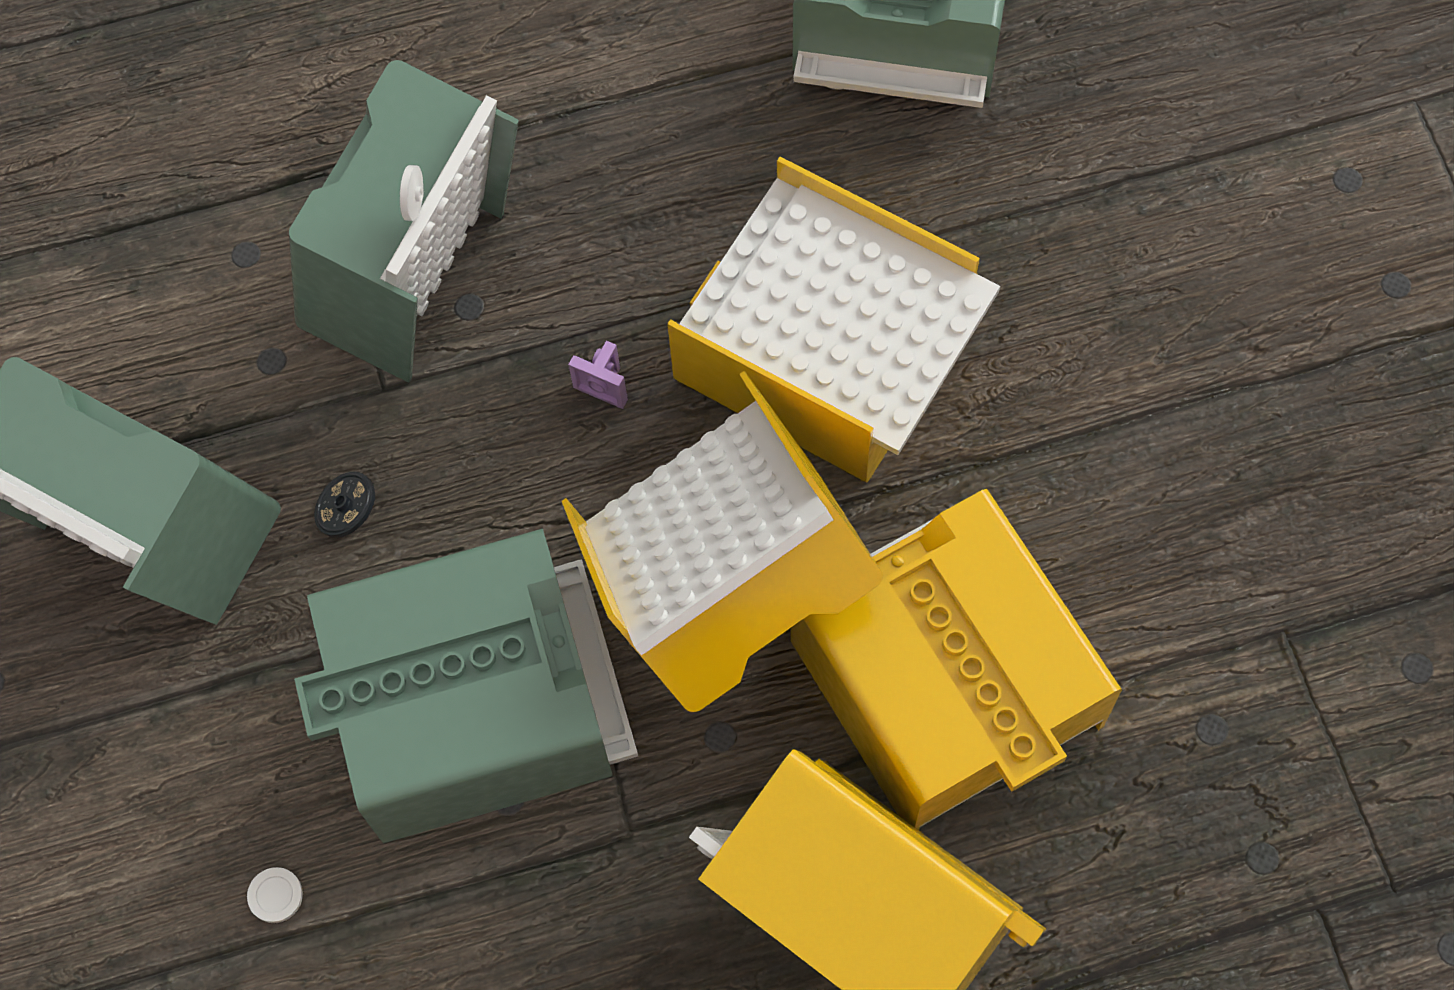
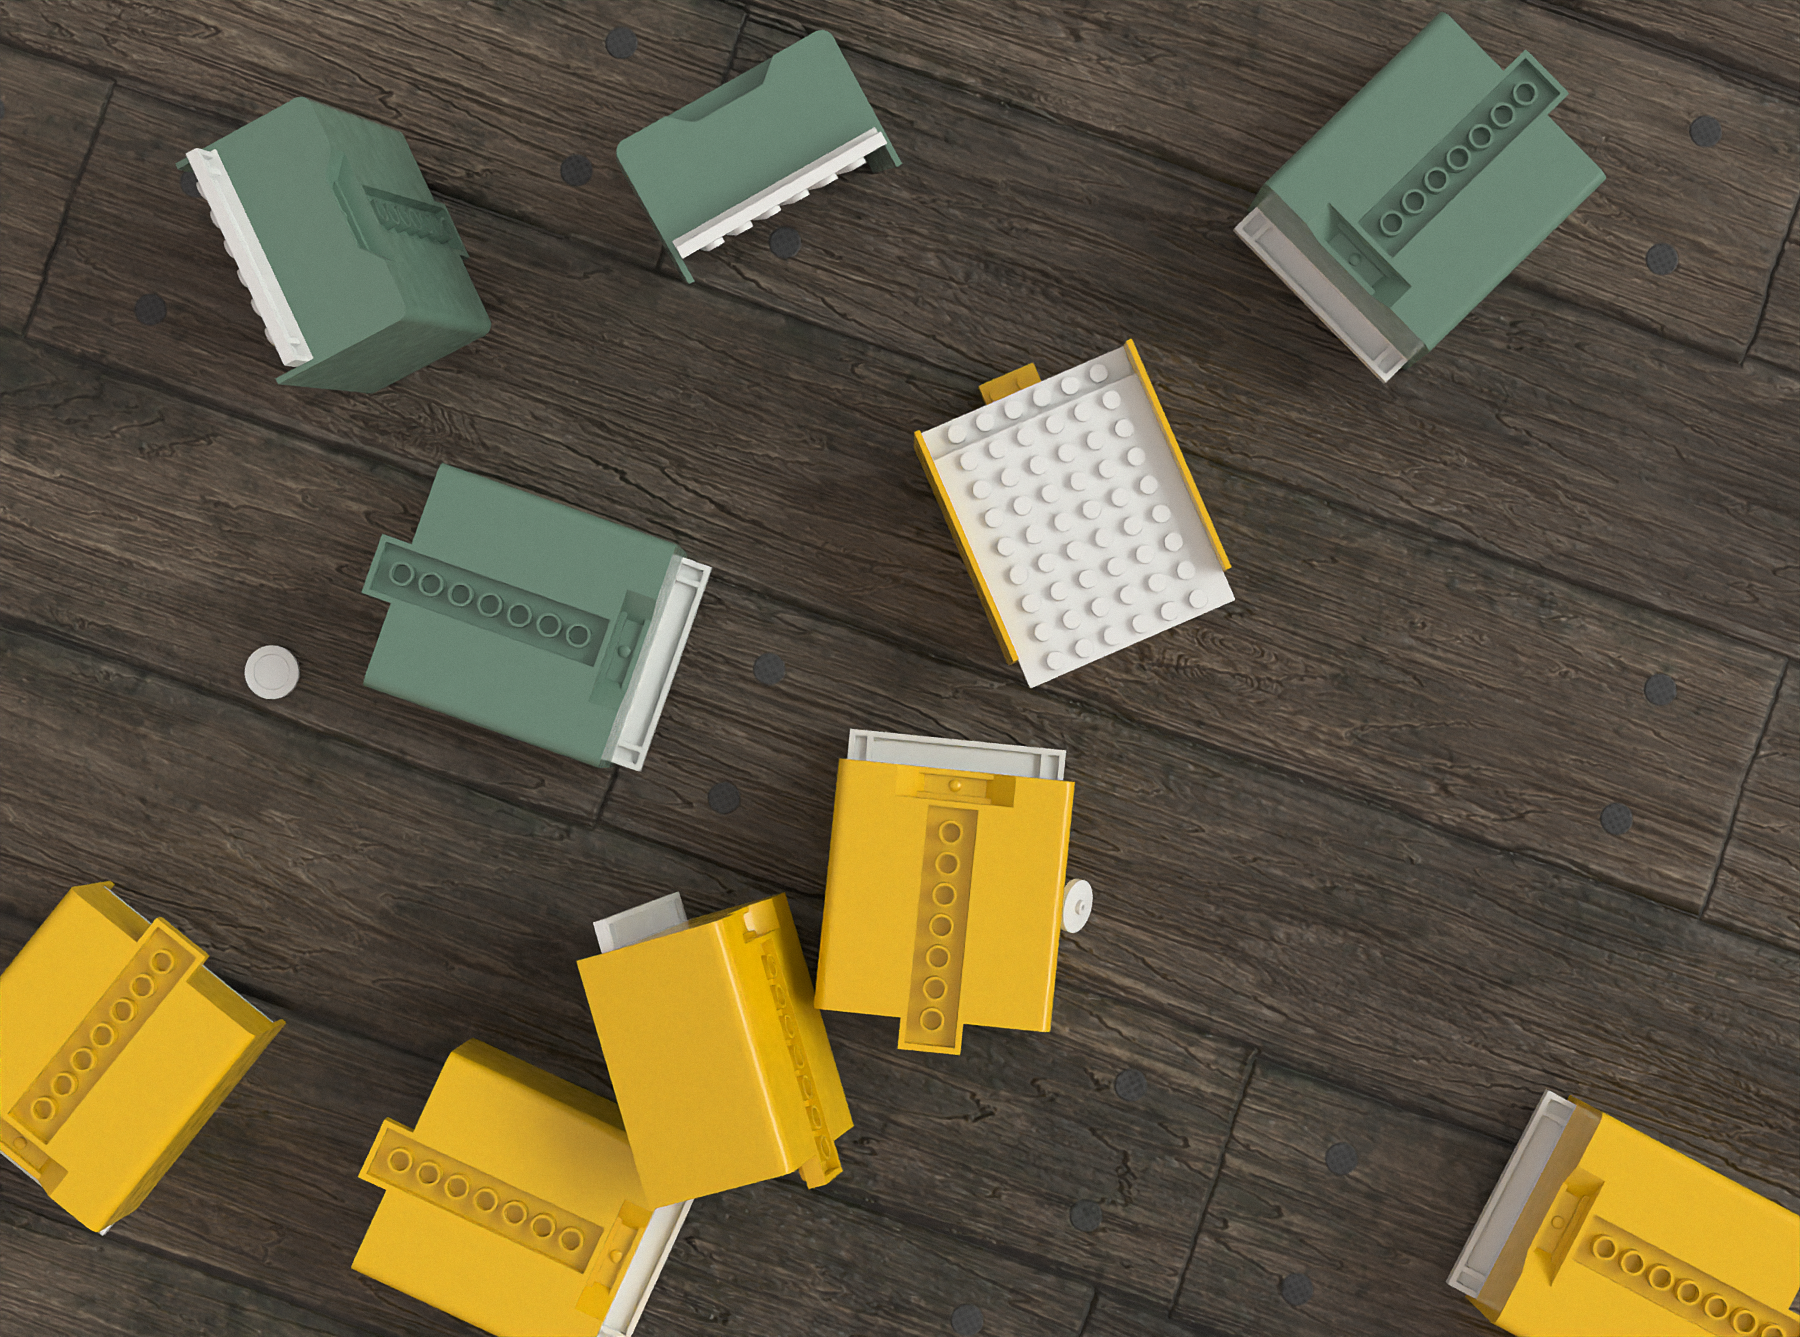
camera: 35 degrees right, 20 degrees up
(344, 504) = (547, 364): black shield -> none
(411, 192) = (742, 195): white piece -> none
(600, 376) = (844, 407): lavender bracket -> none
(723, 553) = (807, 677): piece -> none

